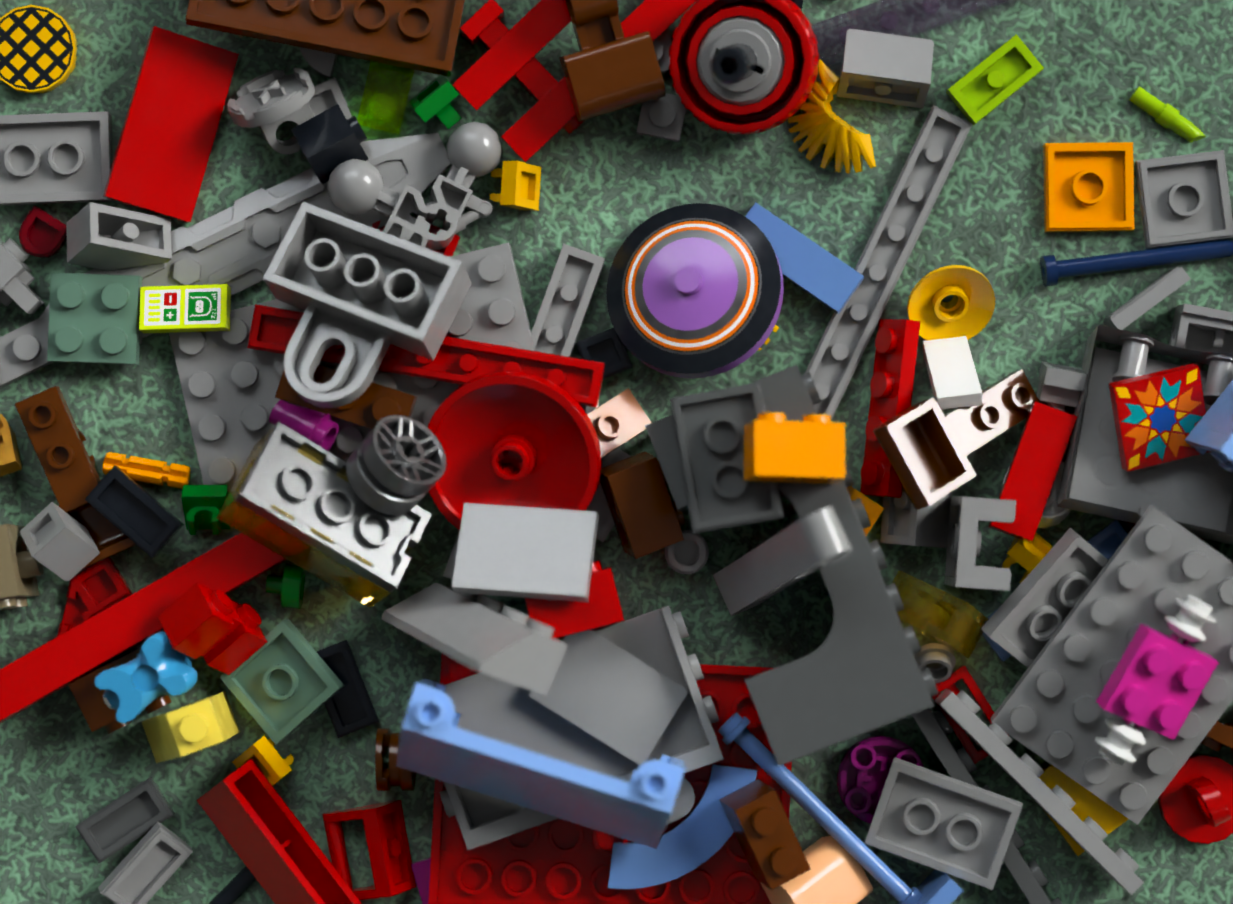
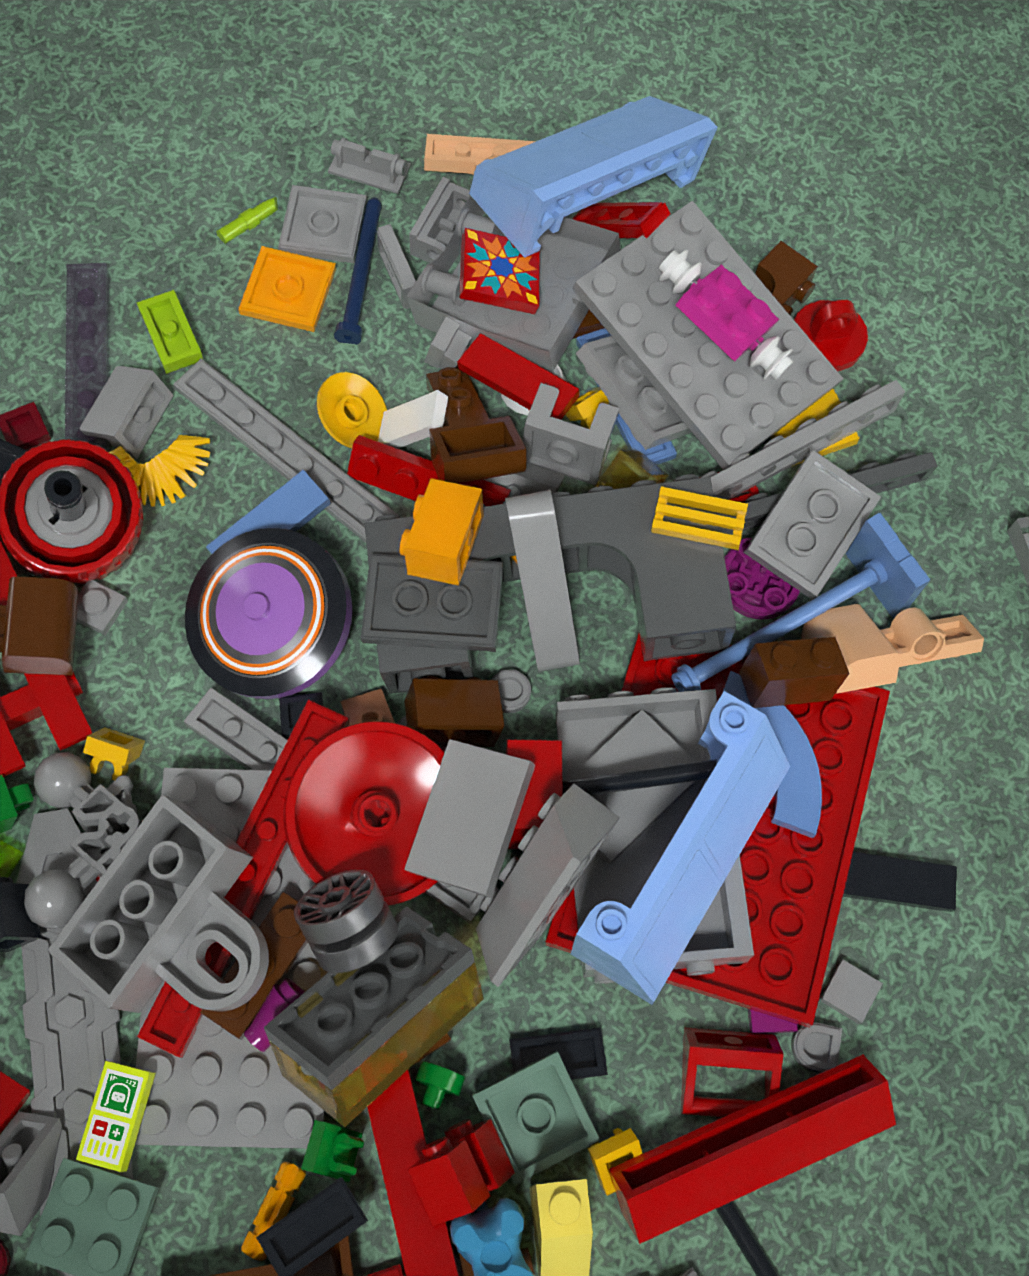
camera: 85 degrees left, 20 degrees down
(394, 775) = (642, 1018): reddish brown wheel -> none
(605, 705) = (643, 778): none -> black bar
(879, 665) = (702, 502): none -> yellow tile

